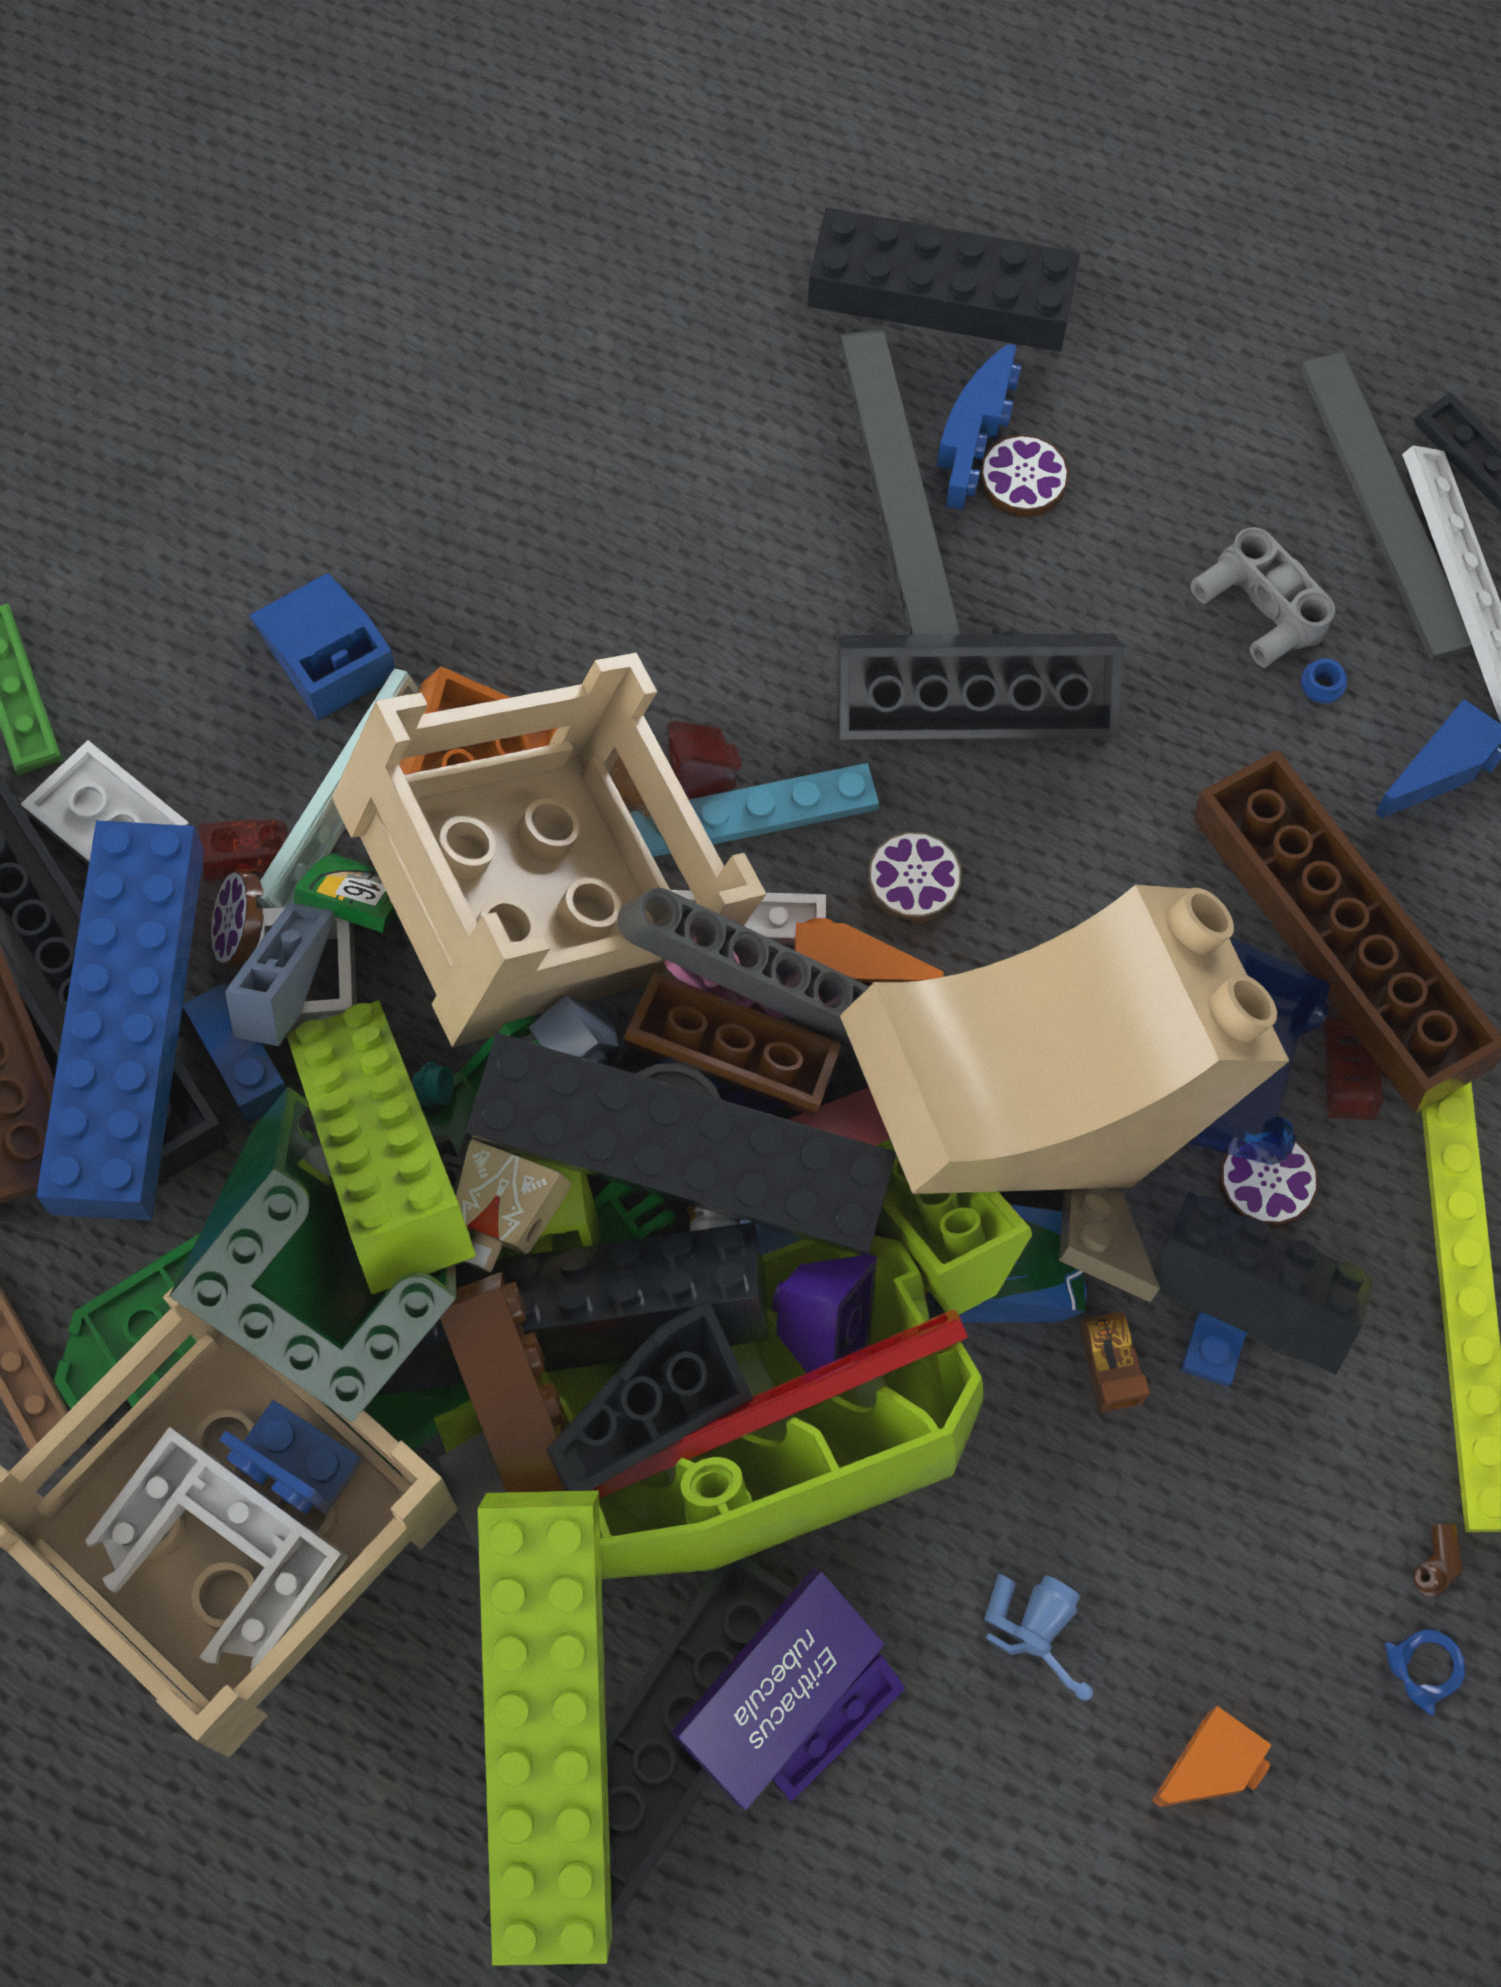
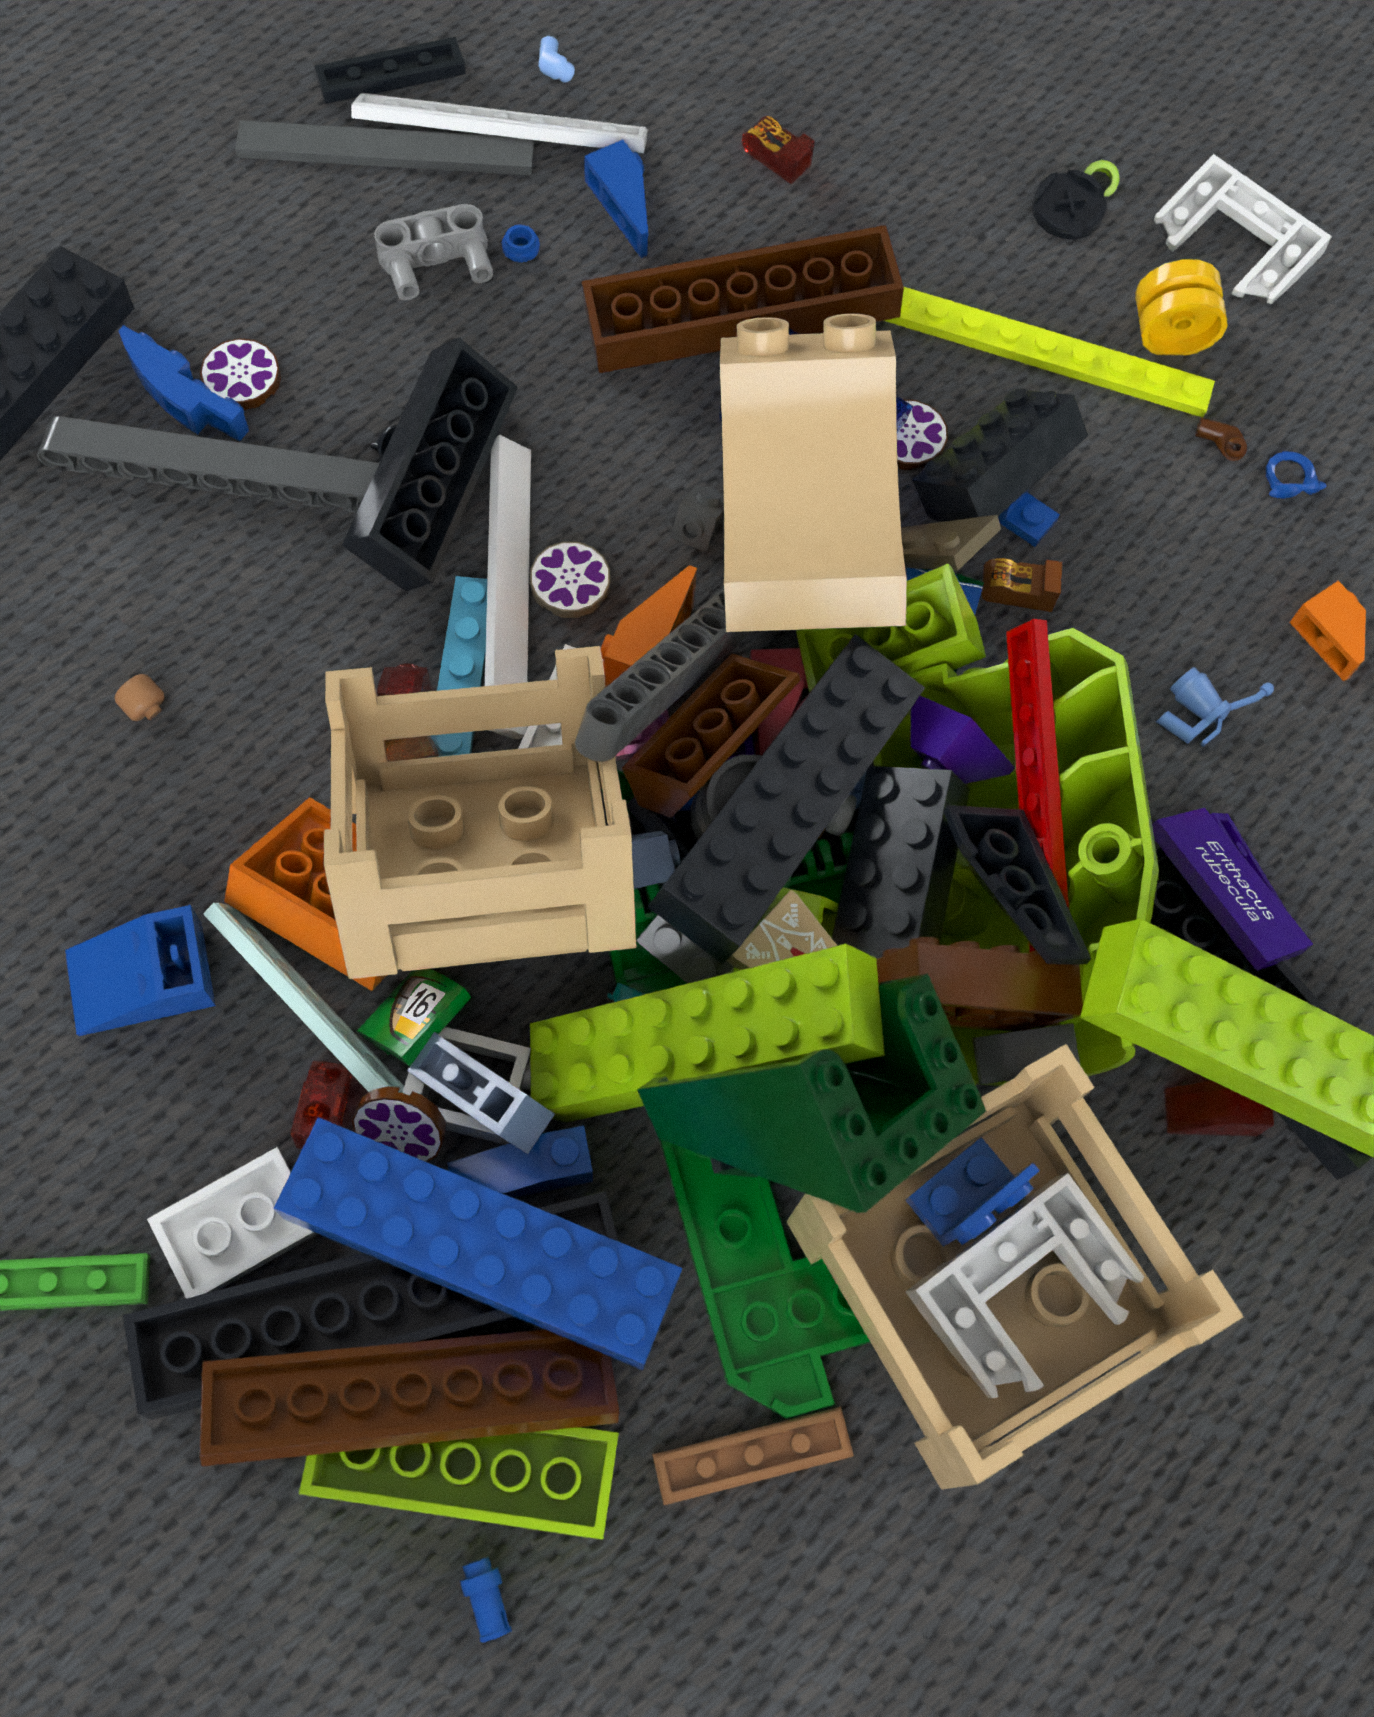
camera: 75 degrees left, 0 degrees up
(611, 531) = (140, 698): none -> medium nougat piece
(894, 809) = (508, 568): none -> white tile

